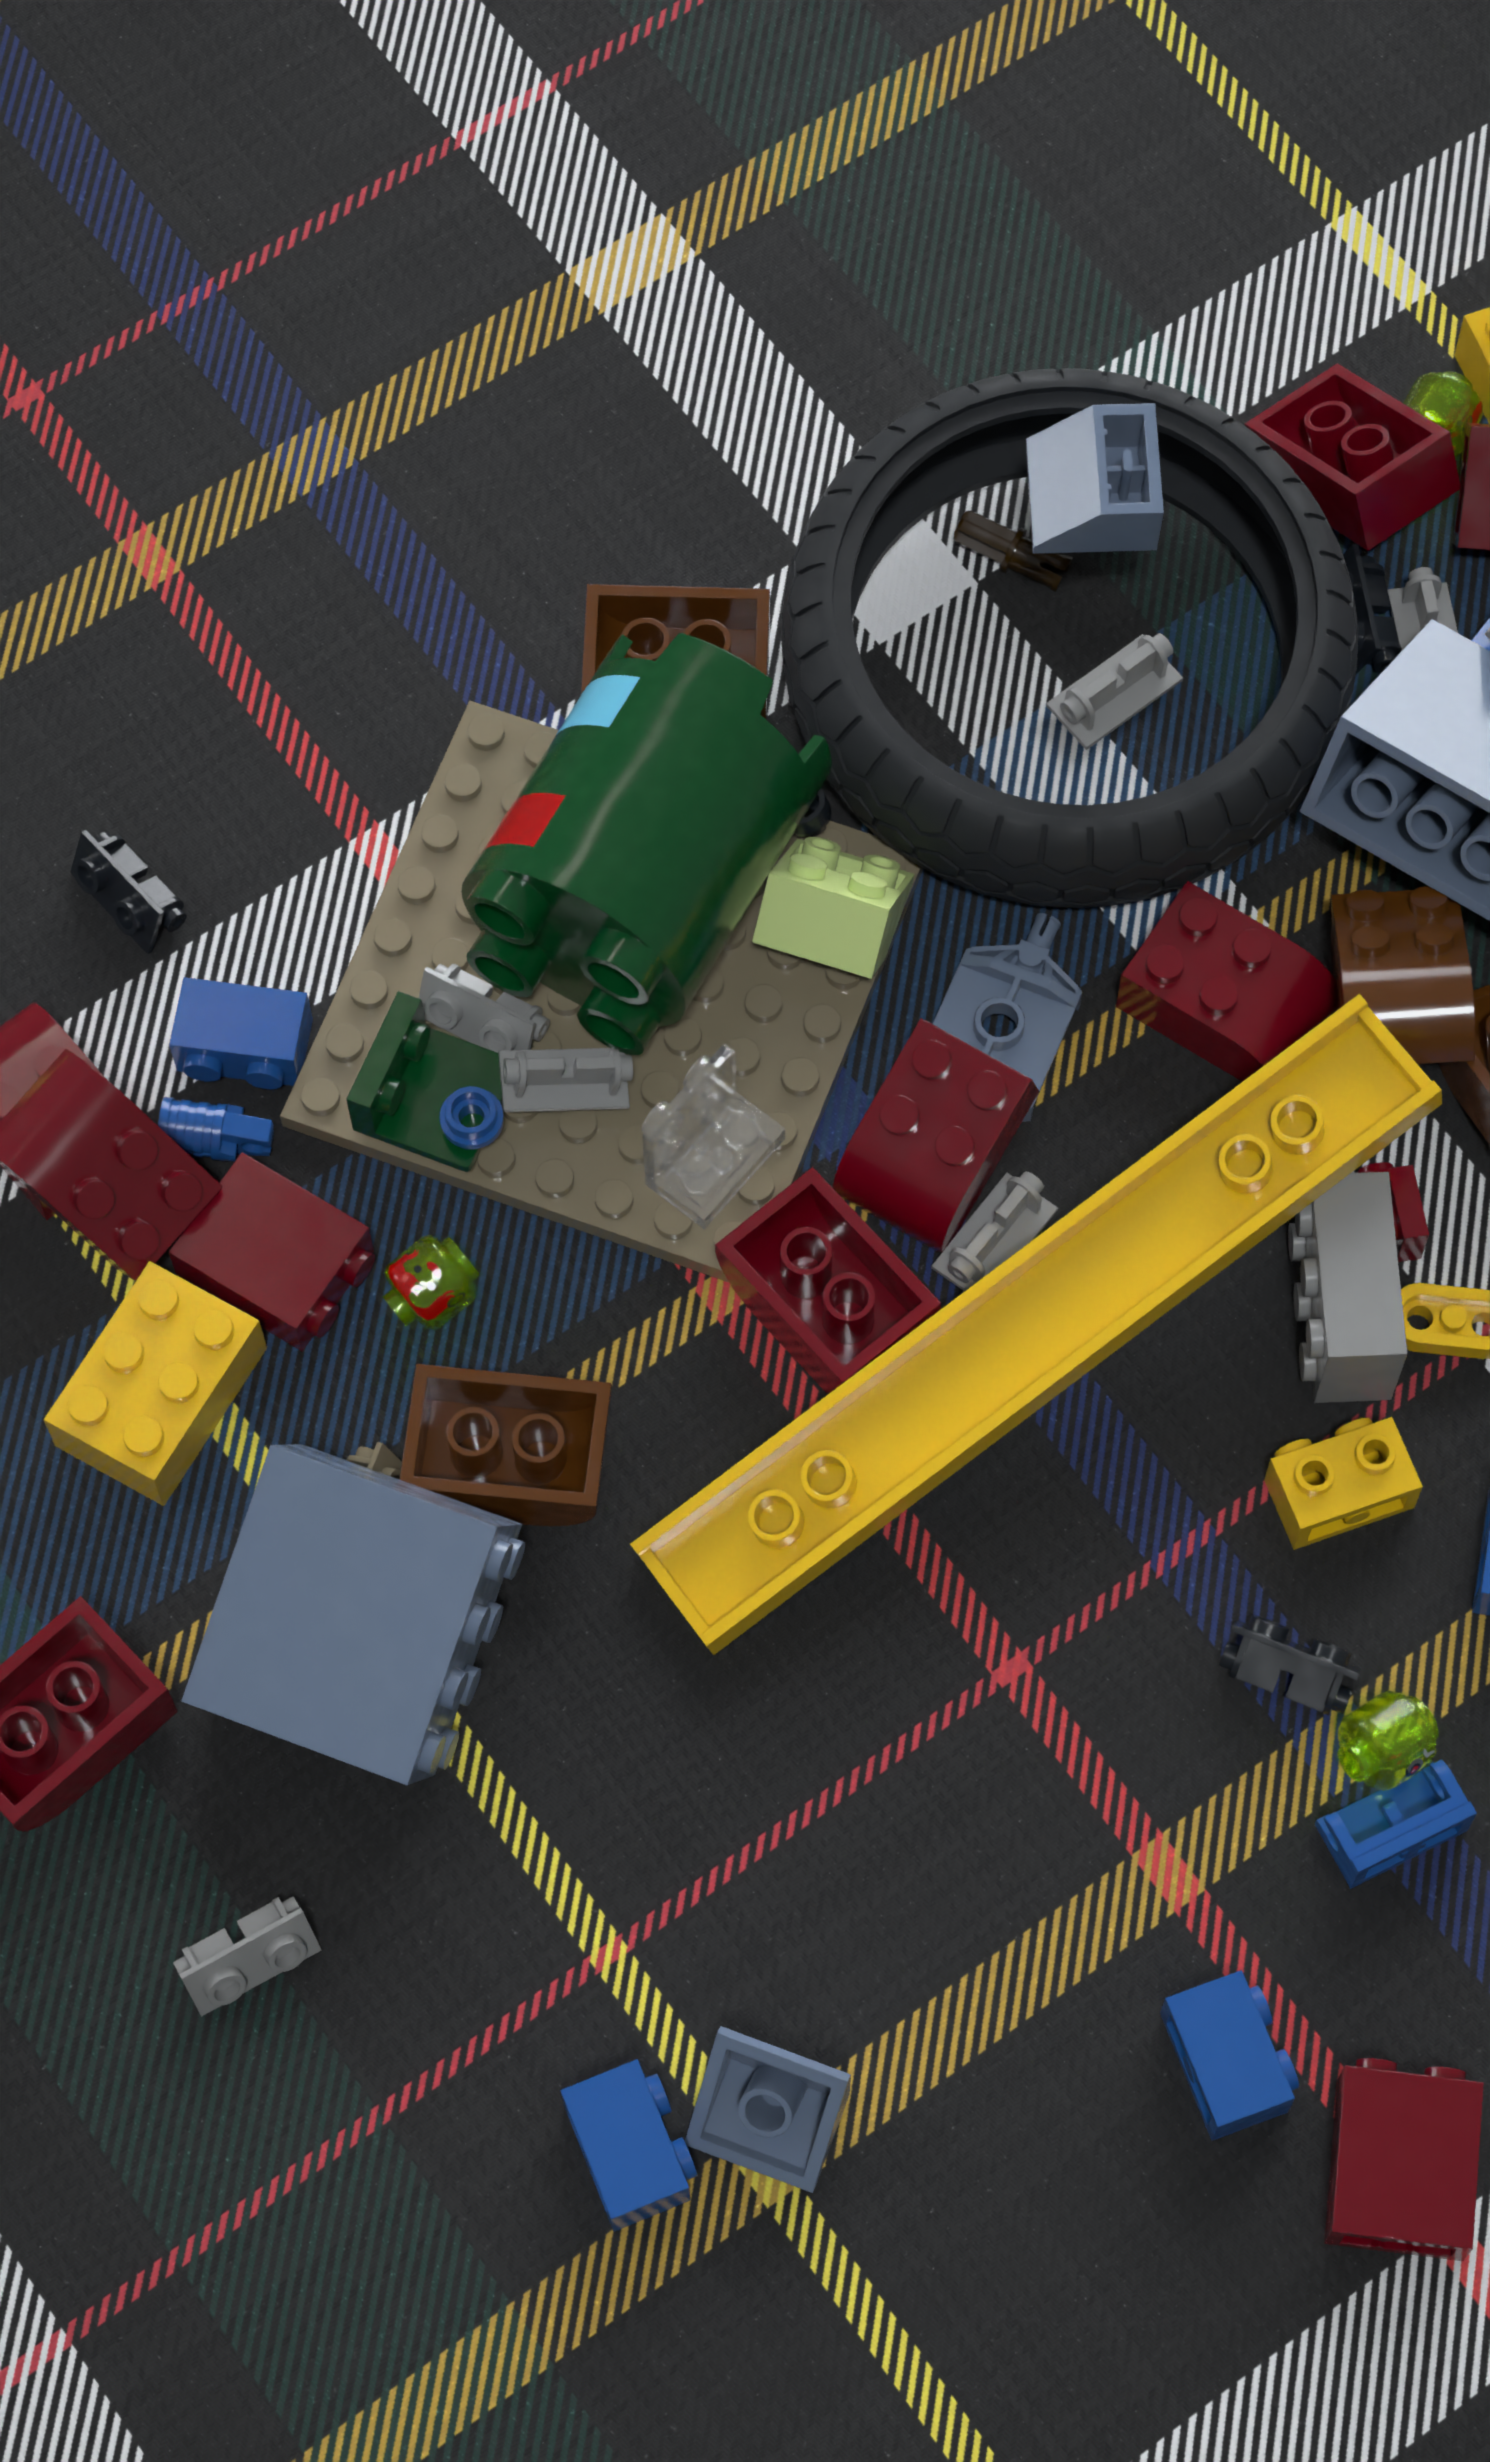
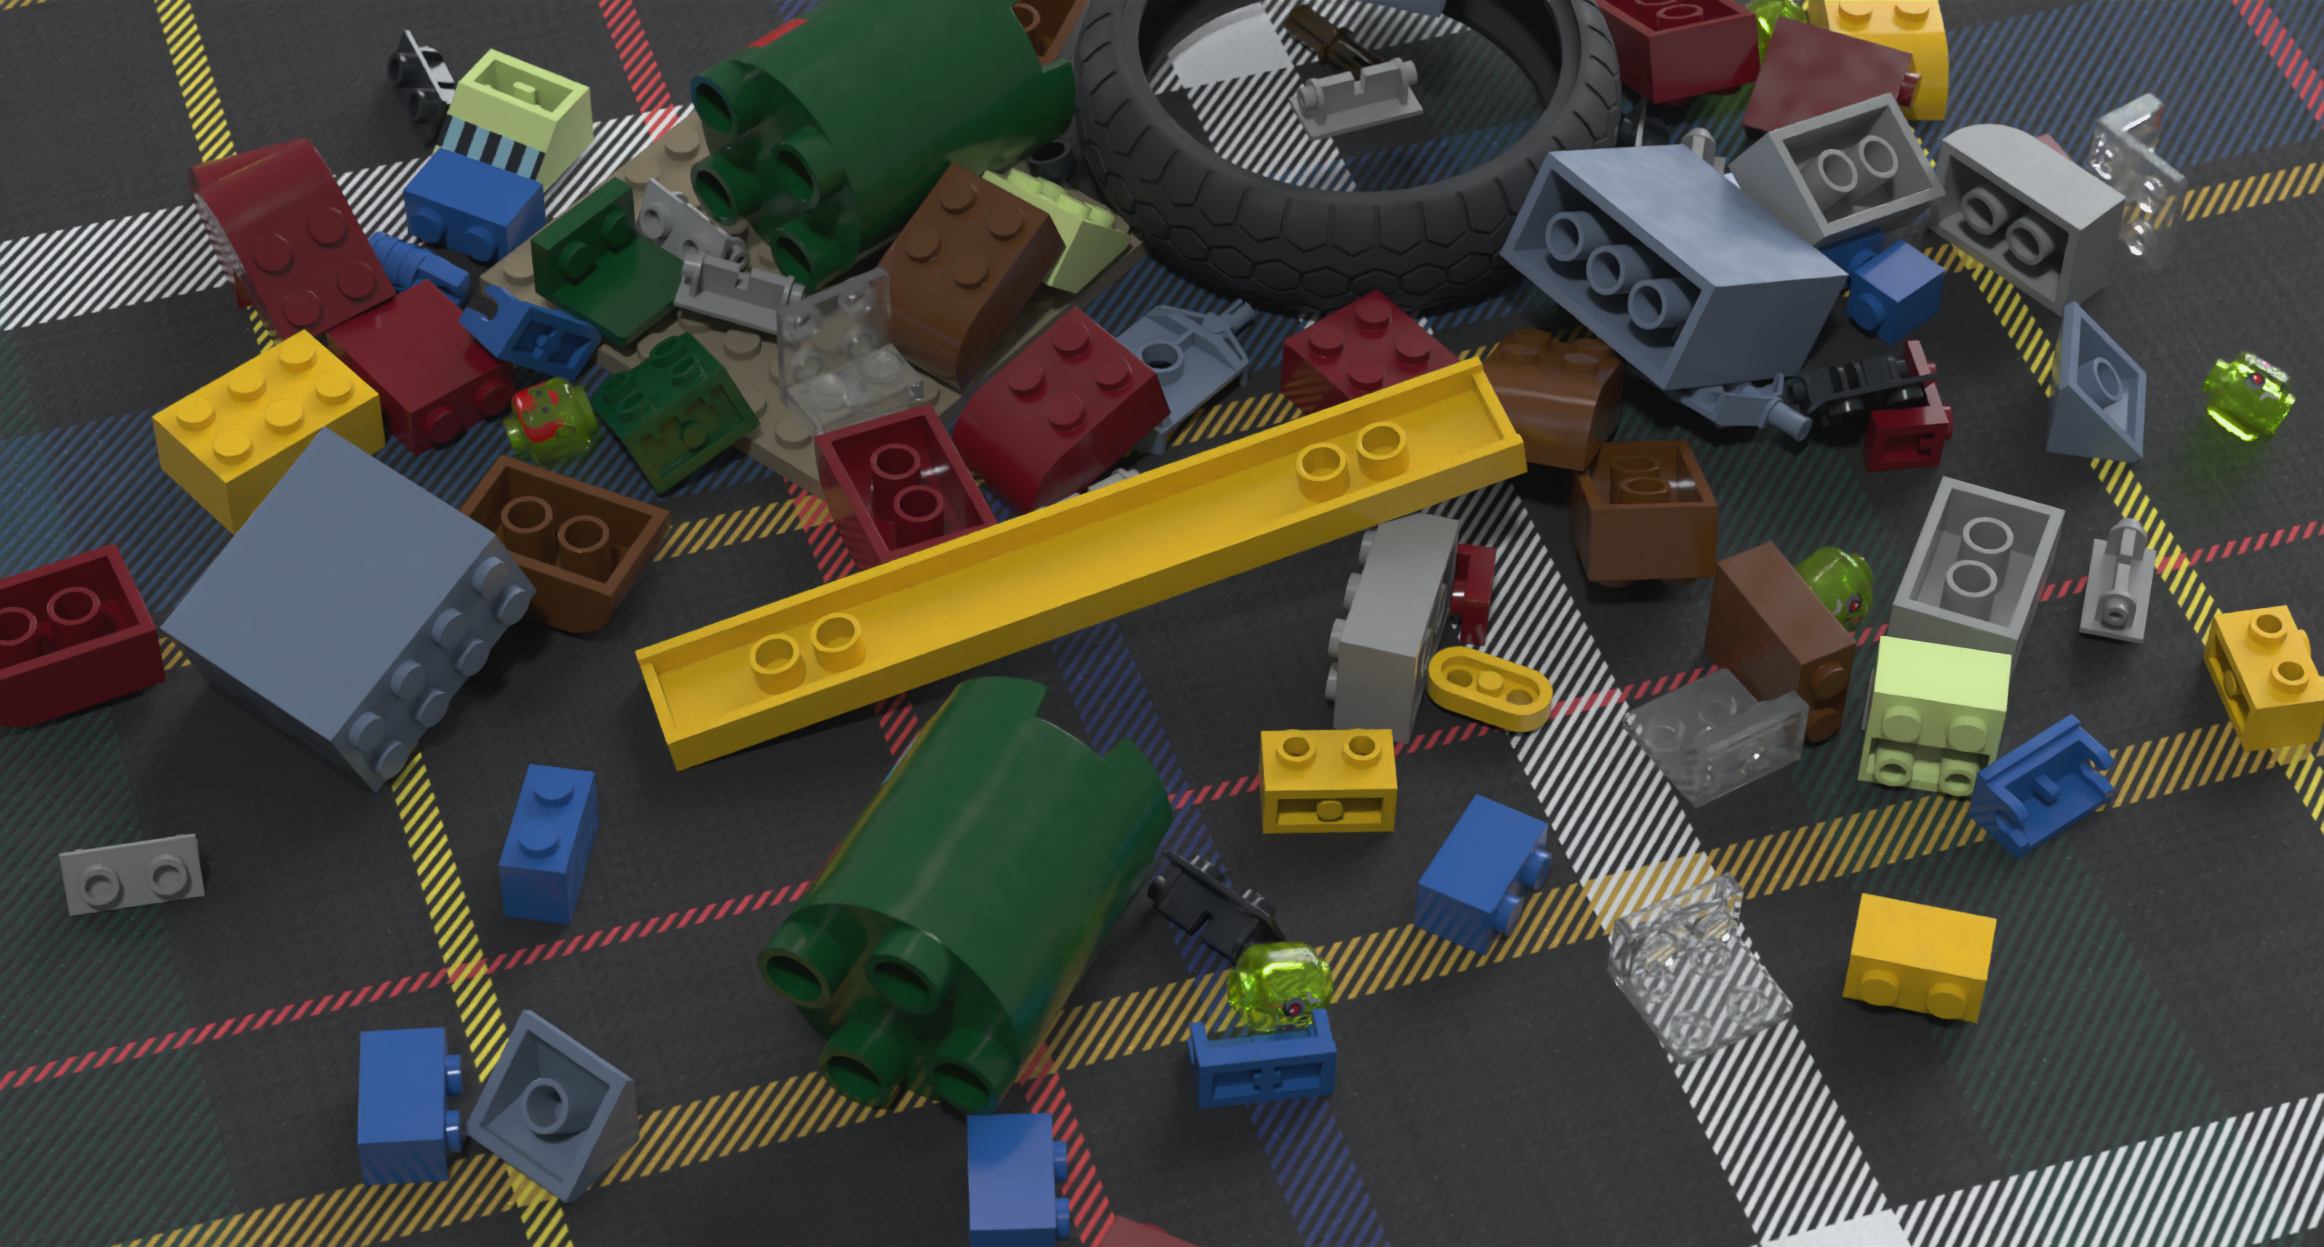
camera: 15 degrees right, 20 degrees down
(241, 918) = (518, 118): none -> yellowish green slope
(375, 1196) = (533, 335): none -> blue hinge
(471, 1101) = (640, 294): blue plate -> none
(546, 1234) = (674, 410): none -> dark green bracket
(640, 1798) = (549, 844): none -> blue brick
(788, 1003) = (965, 273): none -> reddish brown brick
(1094, 1781) = (967, 900): none -> dark green brick

